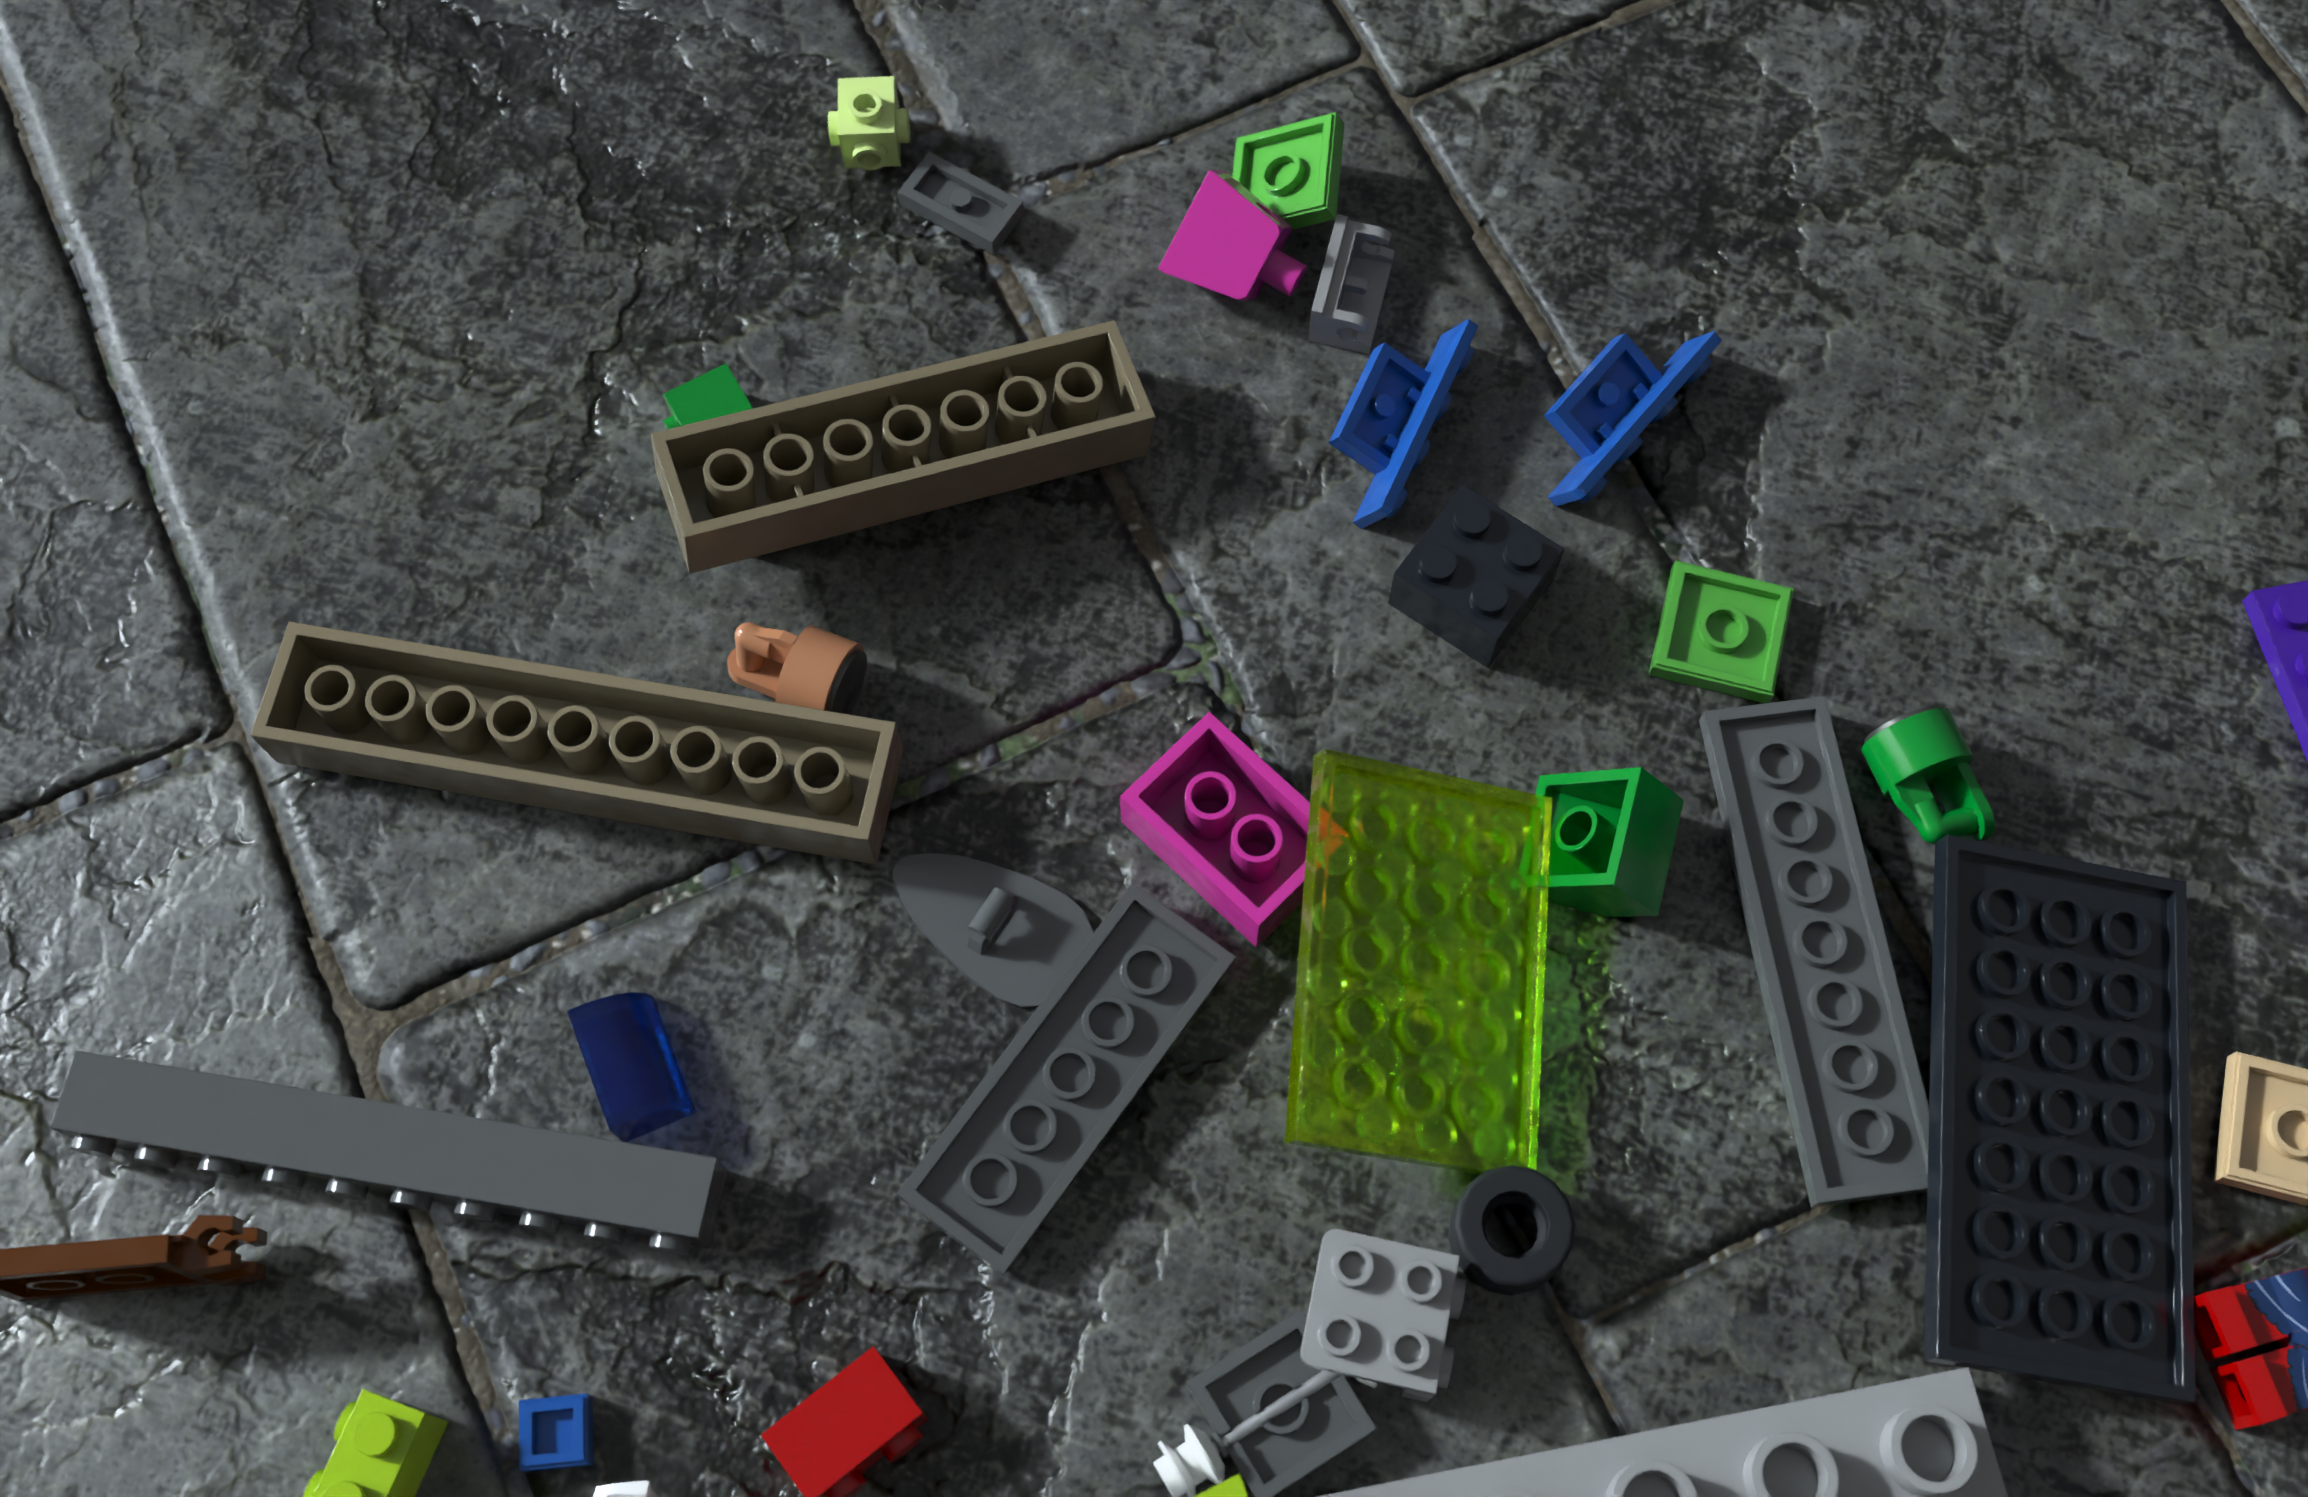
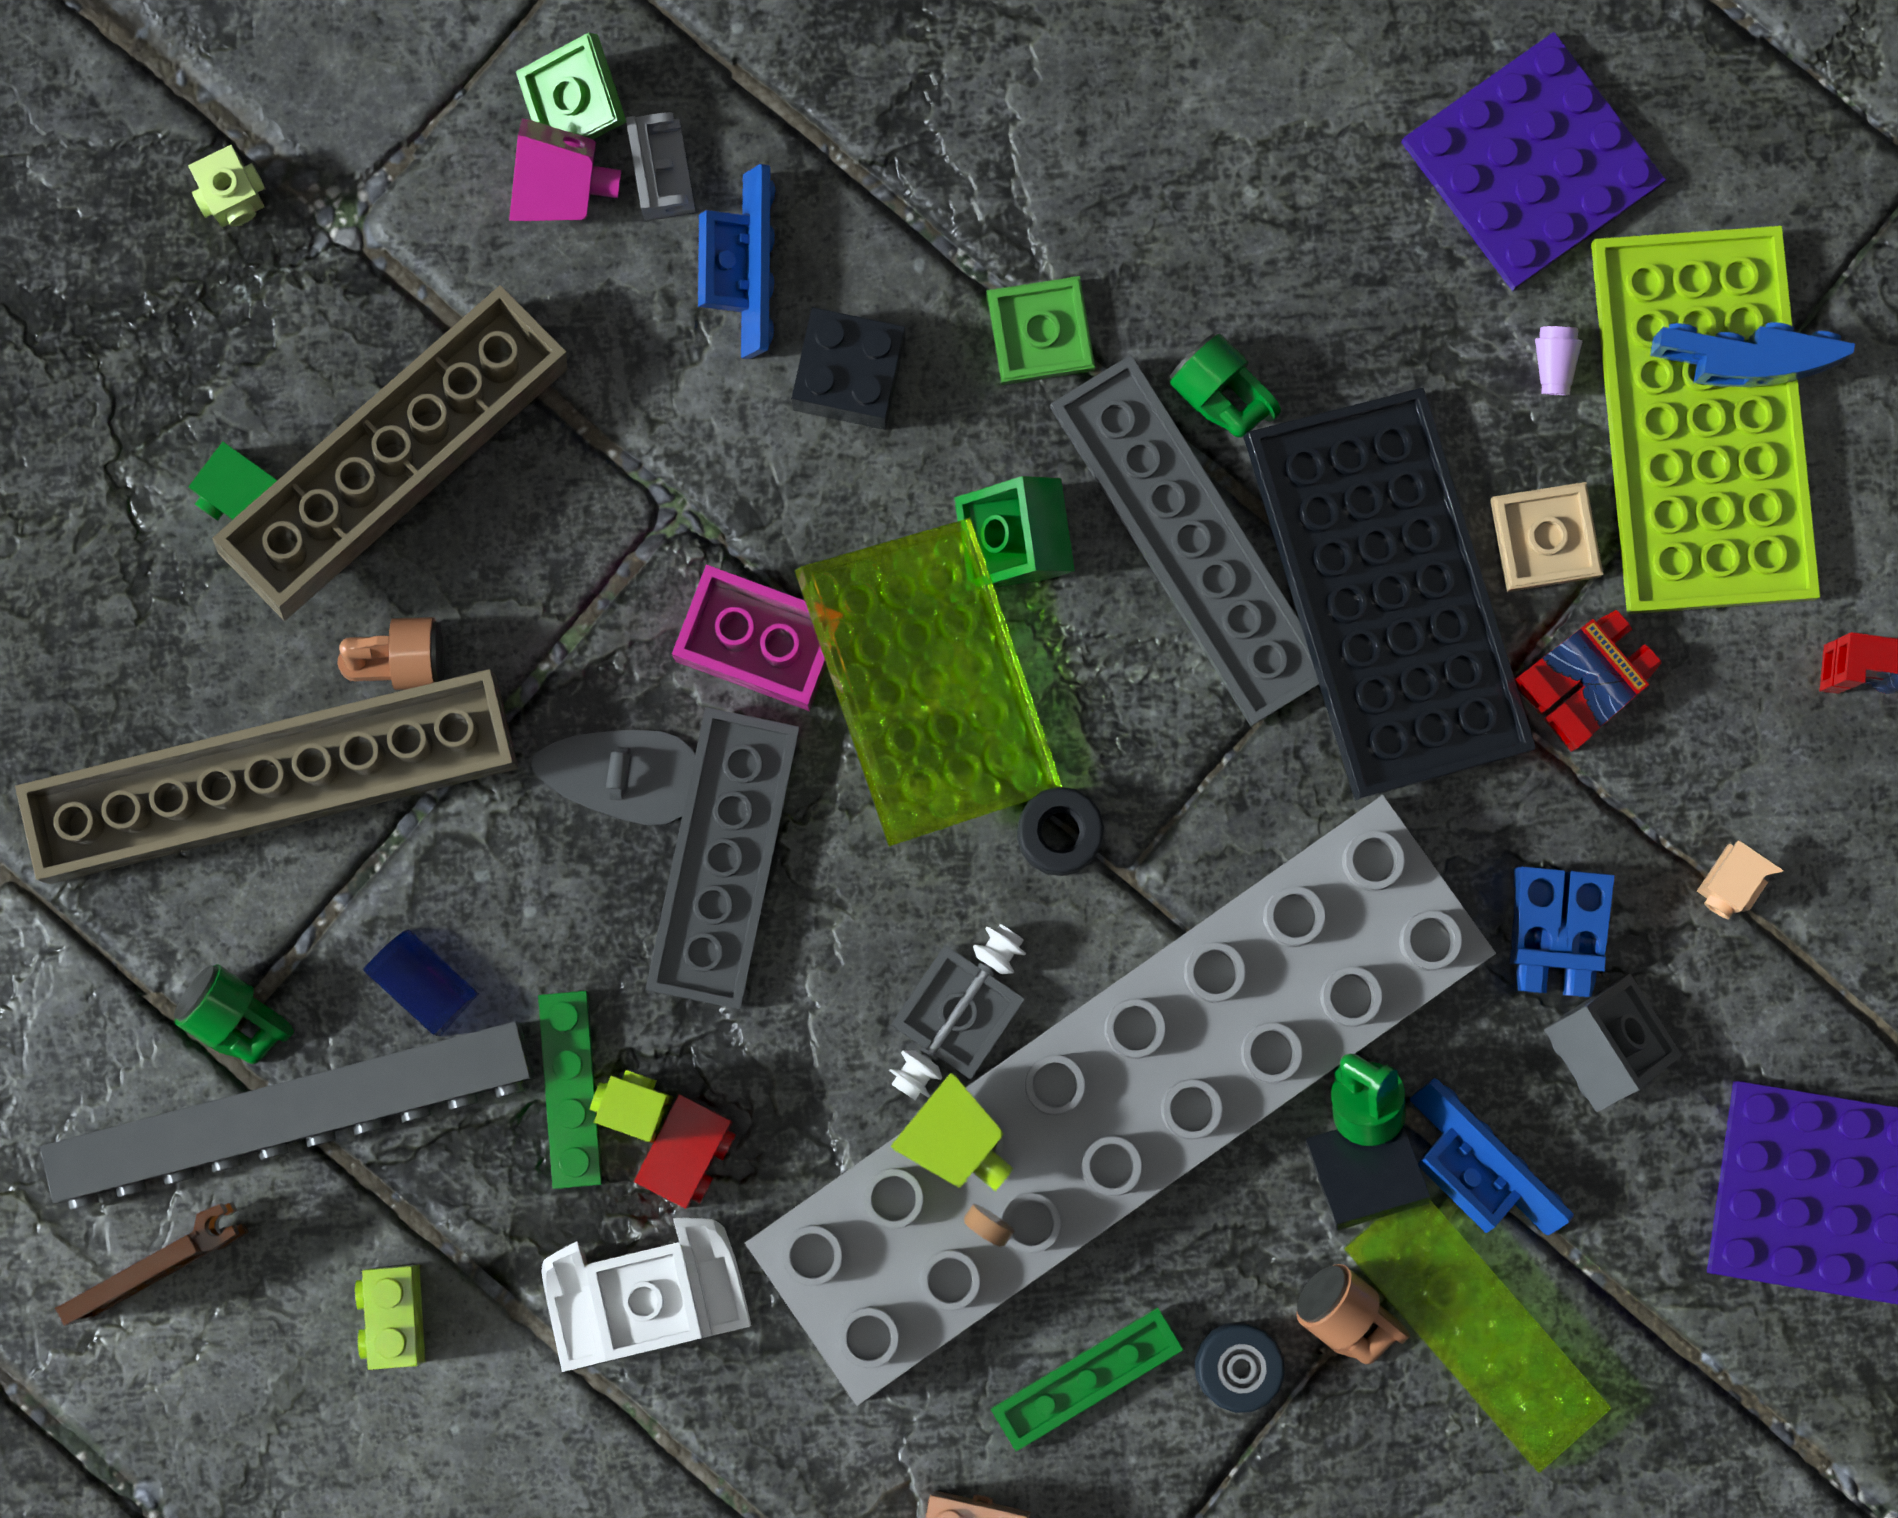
camera: 30 degrees left, 15 degrees up
(373, 976) = (216, 1005): none -> green piece
(556, 1433) = (495, 1239): blue tile -> none
(744, 1284) = (570, 1089): none -> green plate
(804, 1331) = (631, 1106): none -> lime brick
(961, 203) = (329, 221): dark grey plate -> none
(1383, 1312) = (998, 925): light grey bracket -> none
(1615, 403) = (896, 184): blue bracket -> none

